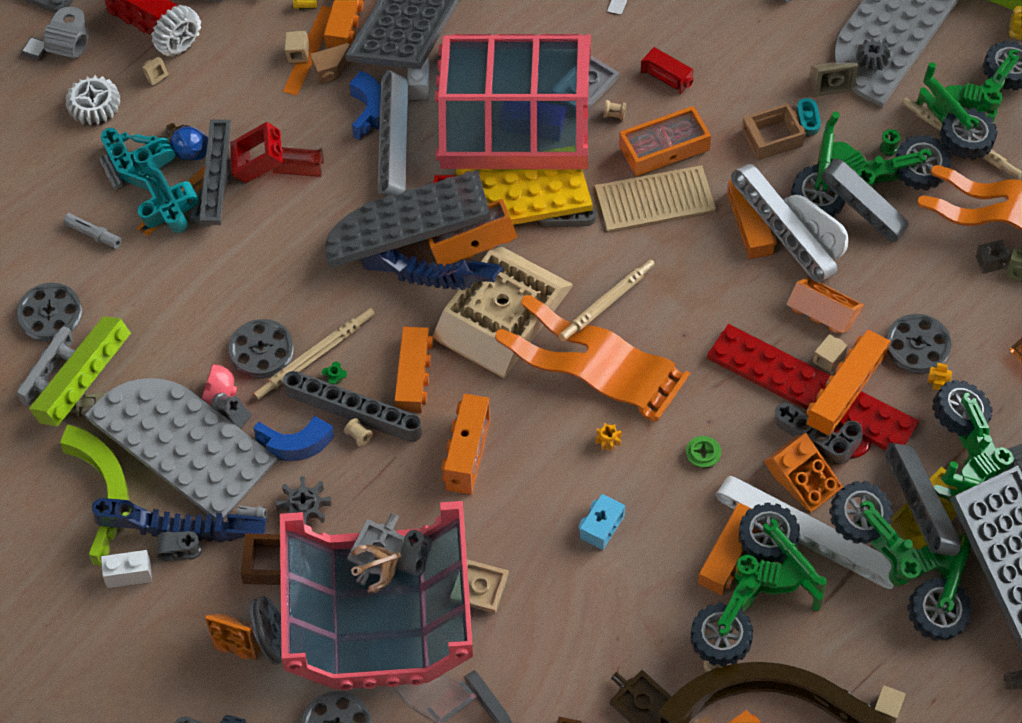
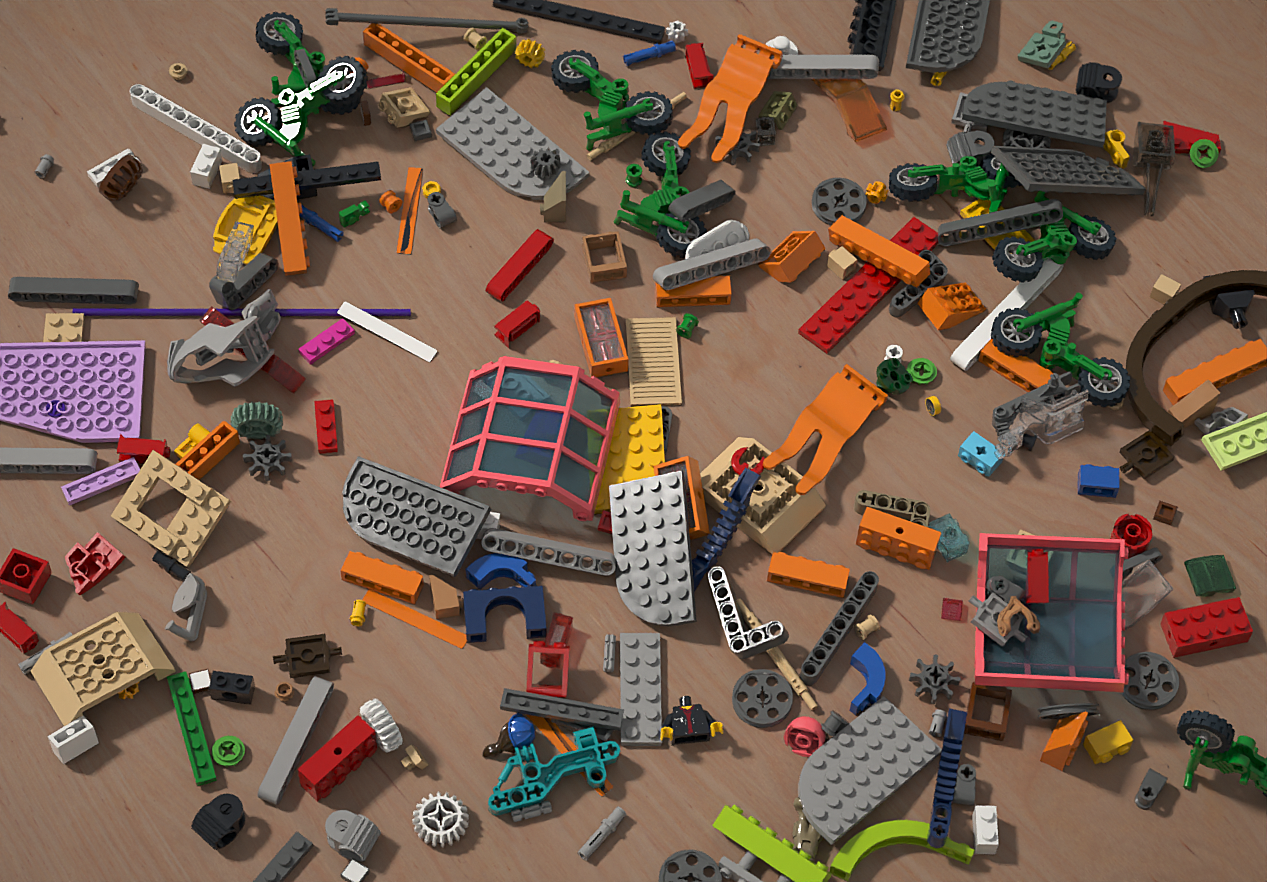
camera: 85 degrees left, 0 degrees up
(217, 281) = (689, 724): none -> black torso
(248, 686) = (1108, 742): none -> yellow brick
(257, 241) = (640, 689): none -> light grey plate
(293, 209) = (609, 653): none -> light grey axle
(297, 47) = (416, 624): tan brick -> none
(324, 91) = (526, 599): none -> dark blue arch
(324, 313) = (735, 620): none -> dark grey beam
(334, 378) = (800, 645): green plate -> none
(400, 510) = (951, 609): none -> clear red tile
(431, 578) = (1038, 577): none -> red window
(476, 499) = (952, 540): none -> clear light blue brick
(510, 439) = (892, 504): none -> dark tan beam
(510, 691) = (1135, 531): none -> red brick
(517, 281) = (739, 468): none -> red head
(592, 649) = (1098, 481): none -> blue brick
(605, 432) = (899, 436): light orange gear -> none
(606, 300) = (765, 410): tan axle -> none
(632, 567) = (1029, 441): none -> black bush
(657, 466) = (933, 405): none -> tile
(668, 573) = (1046, 411): none -> clear piece
(680, 416) = (893, 377): none -> dark green plate
(704, 219) = (687, 325): none -> green bush
(719, 416) = (894, 351): none -> white bush
(742, 61) = (519, 265): none -> red beam
(809, 117) = (590, 226): teal plate -> none
(965, 236) = (744, 146): none -> dark grey gear

